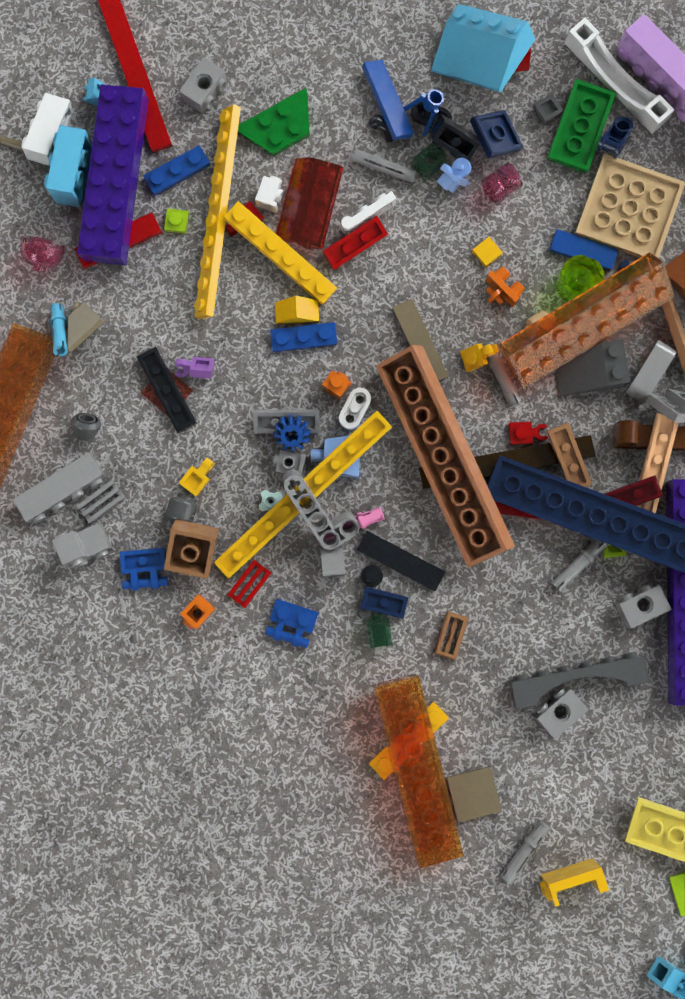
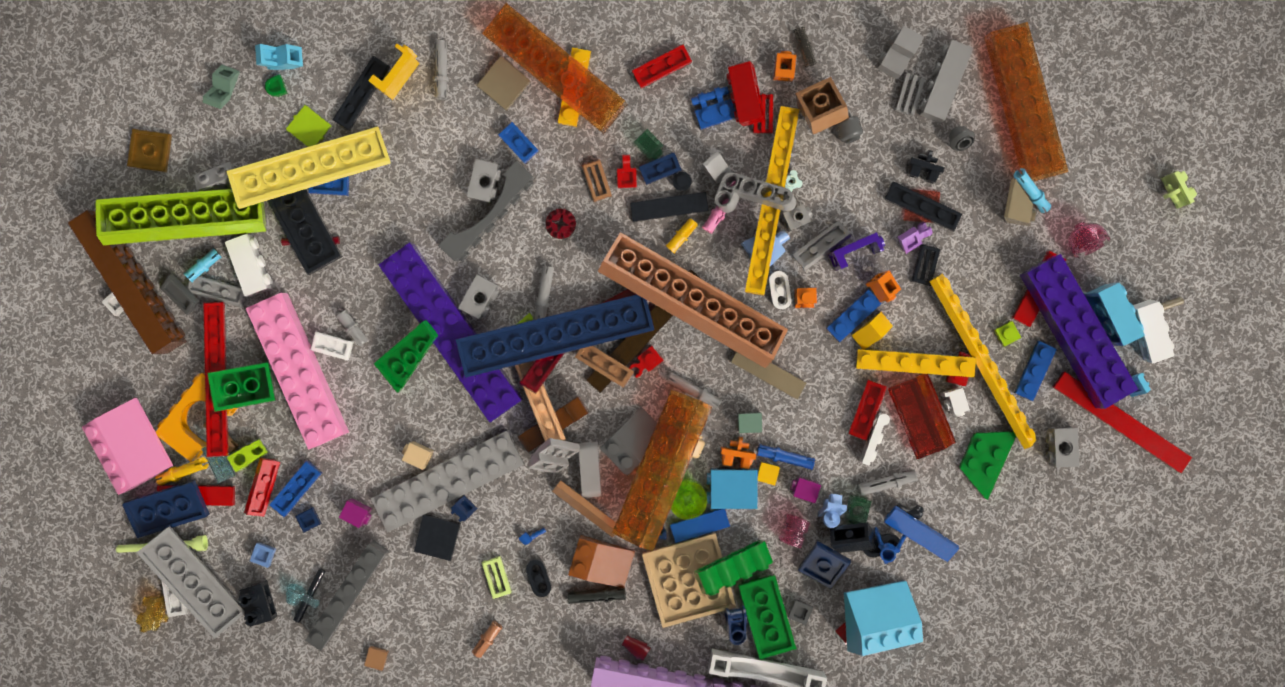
camera: 145 degrees right, 5 degrees up
(134, 414) = (916, 165): none -> black hips
(143, 561) = (850, 73): blue plate -> none
(165, 617) = (804, 46): none -> clear smoke pin
(196, 479) = (854, 159): yellow plate -> none
(210, 341) = (926, 261): none -> black tile
(253, 613) = (745, 94): none -> red brick
(257, 342) = (884, 286): none -> orange brick
(259, 397) = (837, 257): none -> dark purple panel
(297, 439) = (805, 235): blue gear -> none
(312, 698) = (662, 66): none -> red plate
(409, 525) = (681, 235): none -> yellow axle
(420, 618) = (626, 176): none -> red plate
(462, 257) = (784, 456): none -> blue pin
(464, 212) = (805, 489): none -> magenta brick
(471, 308) = (749, 422): none -> sand green panel
(476, 356) = (721, 390): yellow plate -> none
(500, 725) = (518, 142): none -> blue plate
(504, 620) = (565, 231): none -> dark red gear
(530, 260) = (732, 488): none -> dark azure brick
(583, 189) = (732, 567): none -> green brick
(620, 886) = (360, 93): none -> black tile

